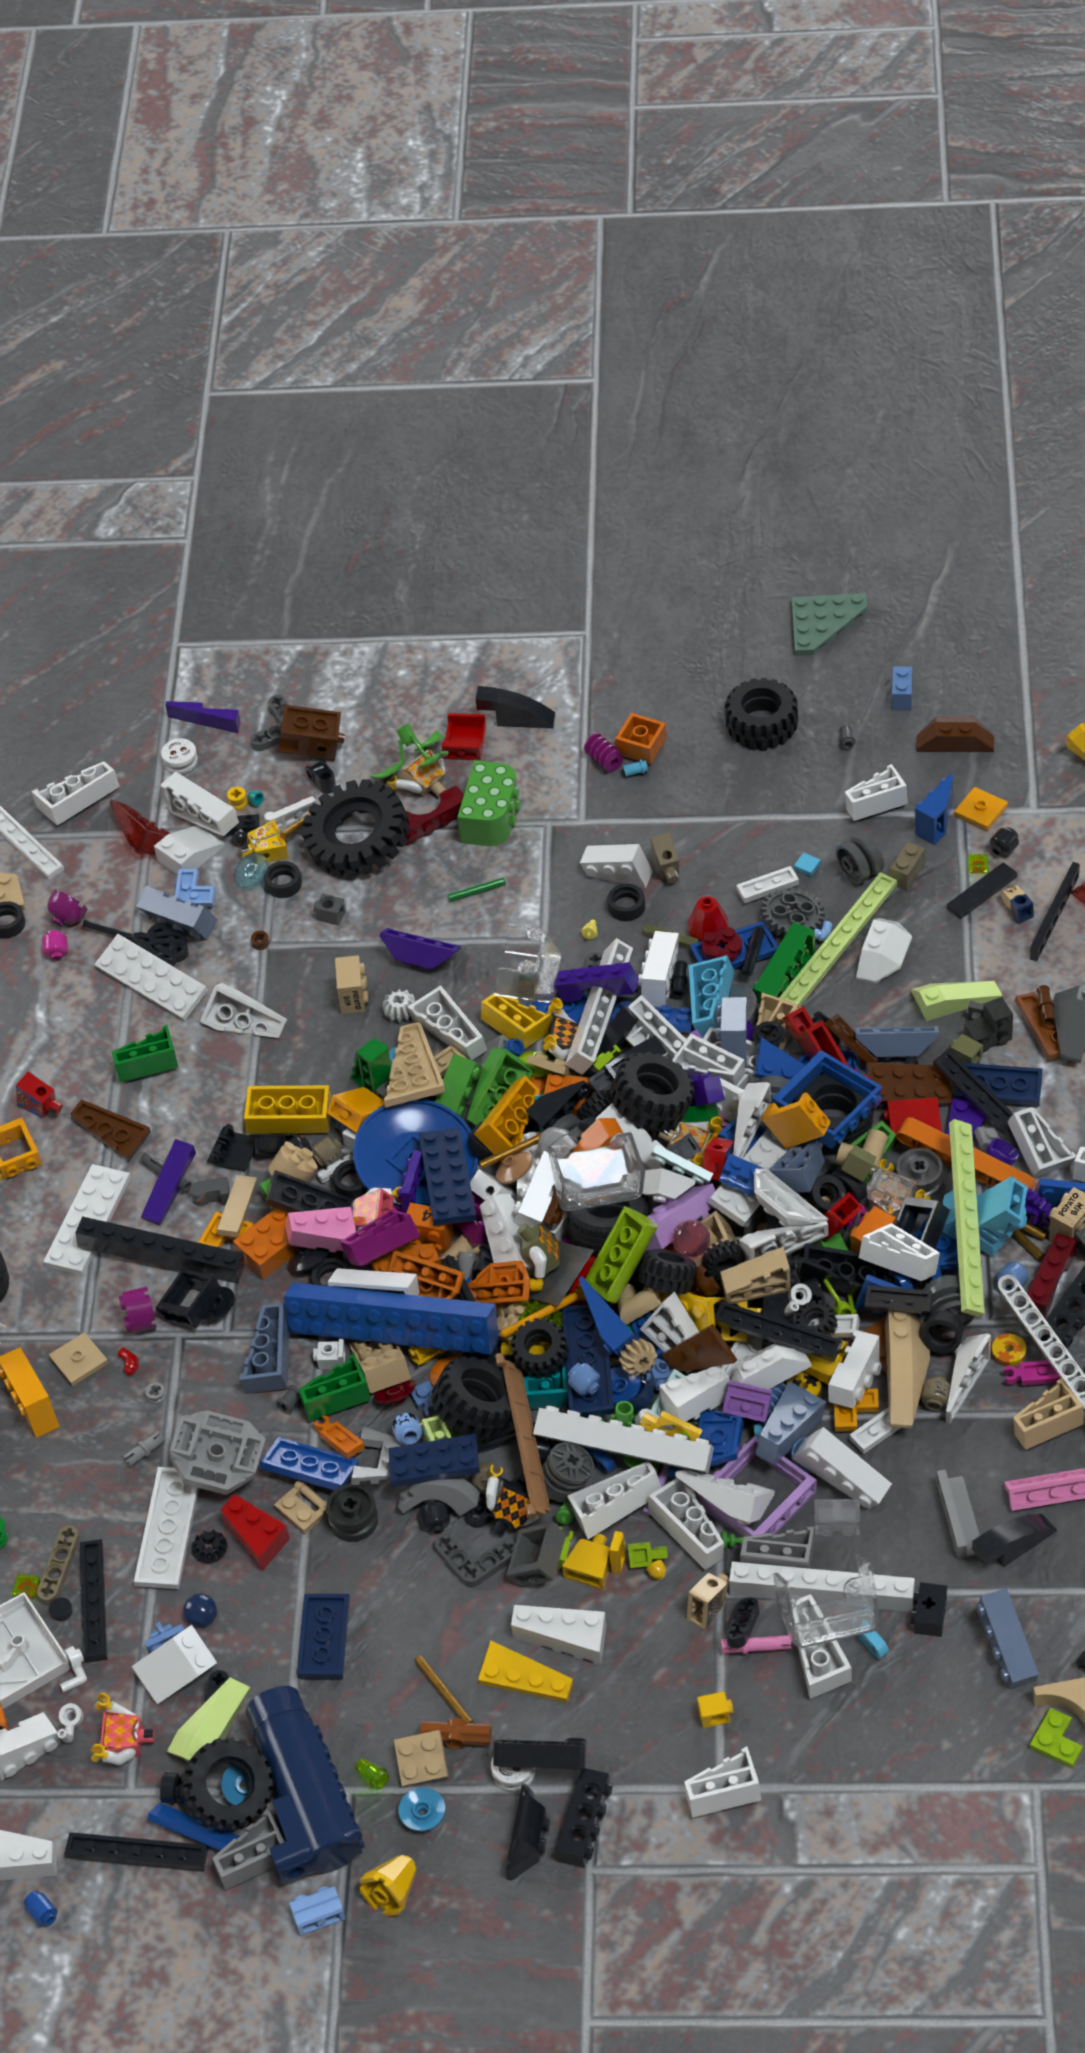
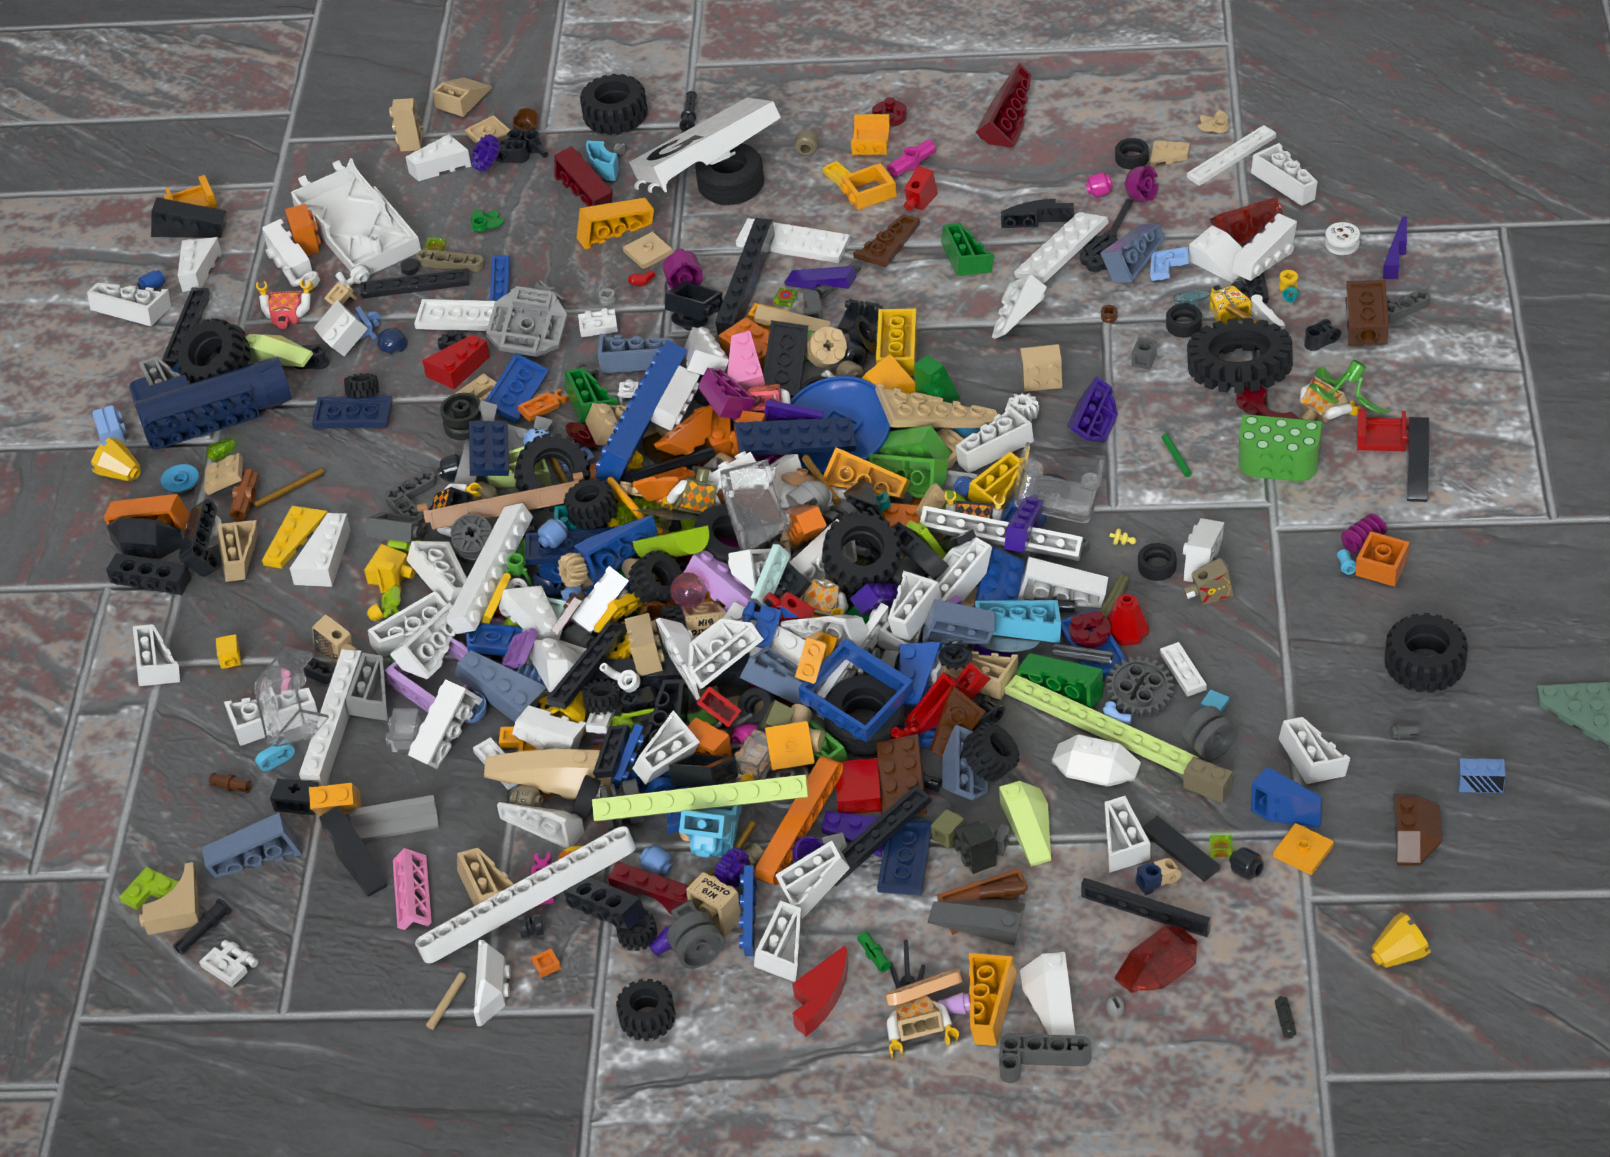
camera: 90 degrees right, 5 degrees down
(86, 1922) = (129, 303): none -> white wedge
(91, 997) = (1036, 211): none -> black slope
(105, 1508) = (500, 277): none -> blue tile
(108, 1676) = (340, 293): none -> tan bracket
(184, 1221) = (785, 297): none -> clear neon green tile
(207, 1395) = (597, 322): none -> white plate
(291, 1632) = (361, 385): none -> black tyre
(298, 1267) = (704, 352): none -> white wedge
(487, 1830) = (163, 508): none -> orange wedge
(557, 1719) = (236, 548): none -> tan wedge
(884, 1011) = (990, 752): none -> black tyre
(891, 1154) = (789, 746): none -> light orange plate
(909, 1679) = (230, 783): none -> reddish brown pin
(950, 1555) = (327, 797): none -> light orange brick
(976, 922) = (1124, 835): none -> white wedge

